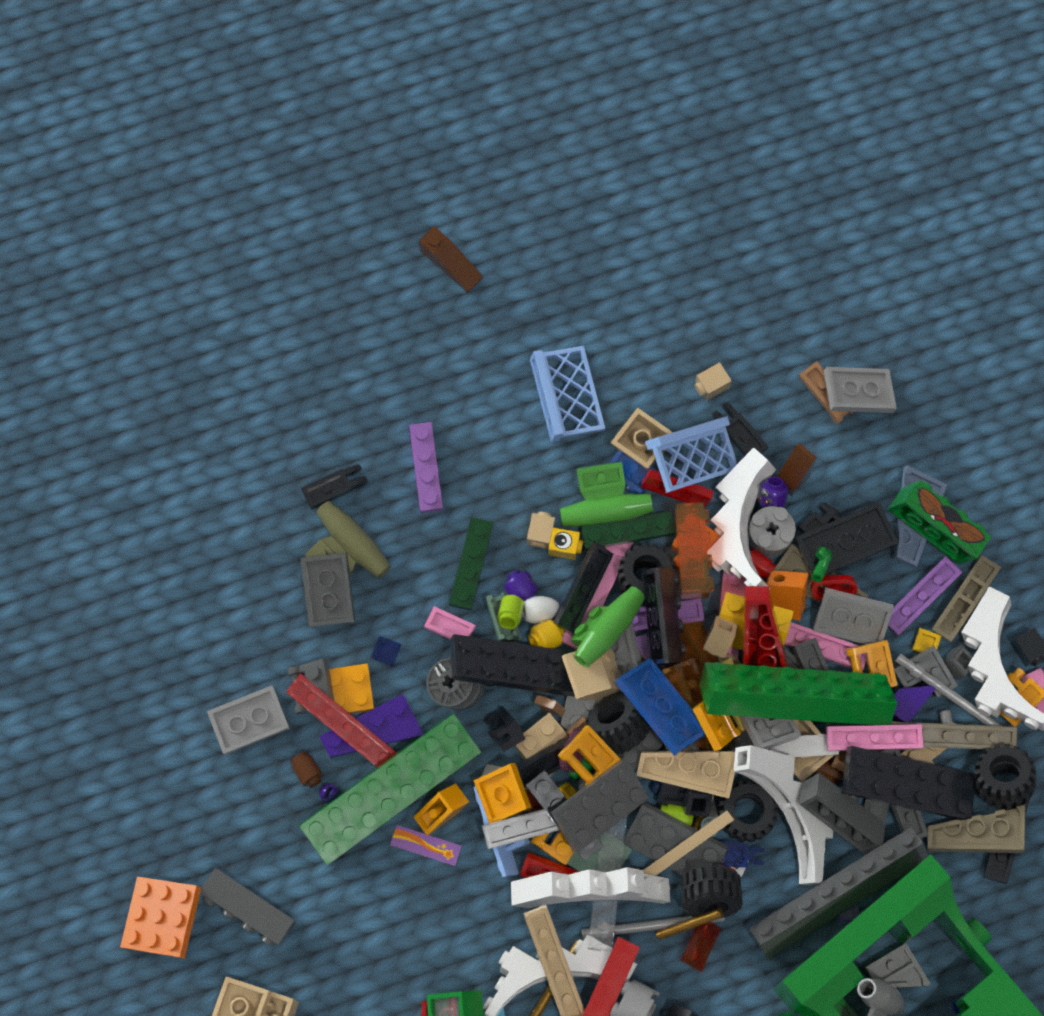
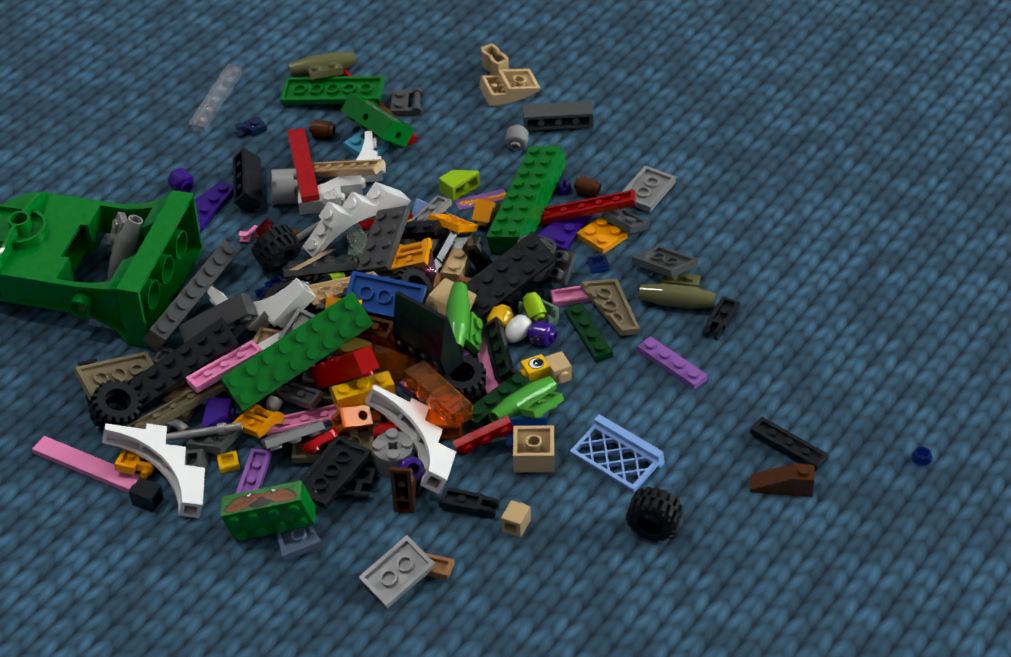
camera: 145 degrees right, 30 degrees down
(160, 917) = (602, 87): orange plate -> none
(307, 203) = (922, 456): none -> clear blue plate
(319, 907) = (516, 137): none -> light grey head
(408, 296) = (788, 443): none -> black plate
(421, 581) = (613, 304): none -> dark tan wing
(428, 657) = (562, 267): none -> dark grey hips
(438, 878) = (458, 183): none -> lime slope
(599, 286) = (654, 514): none -> black tyre
(693, 435) = (500, 456): light blue fence -> none
(718, 968) = (246, 236): none -> bright pink hand
(720, 637) = (383, 363): tan brick -> none
(821, 568) = (338, 440): green arm -> none
(966, 598) = (216, 487): dark tan slope -> none

